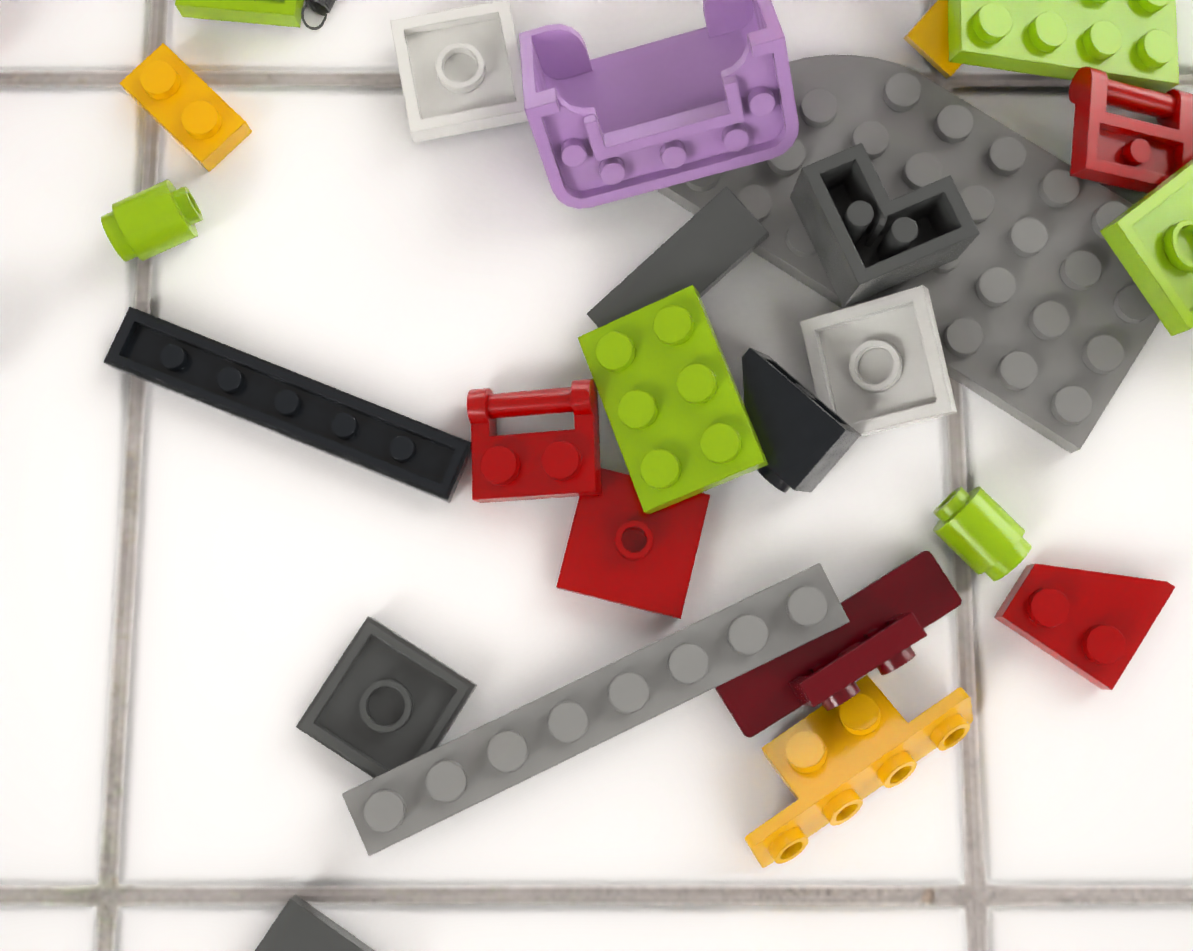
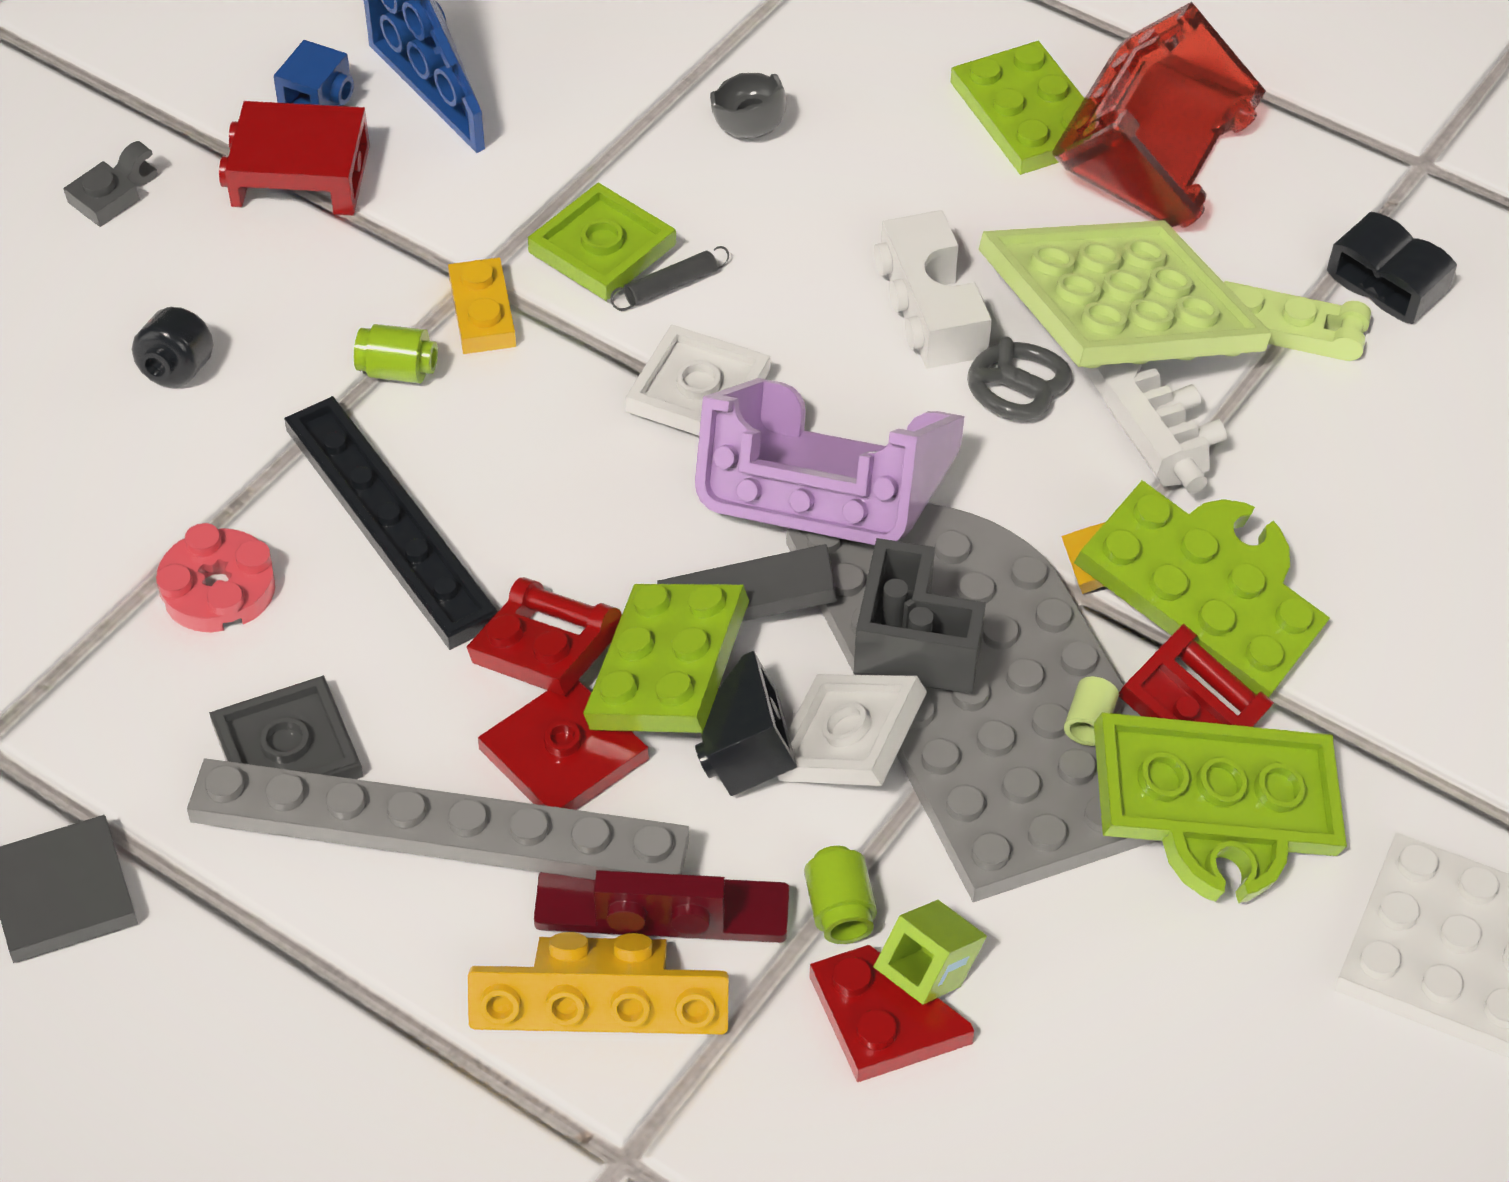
camera: 35 degrees right, 30 degrees down
(151, 557) = (210, 552): none -> coral plate
(1073, 211) = (1089, 701): none -> yellowish green hinge
(1105, 545) = (930, 951): none -> lime brick

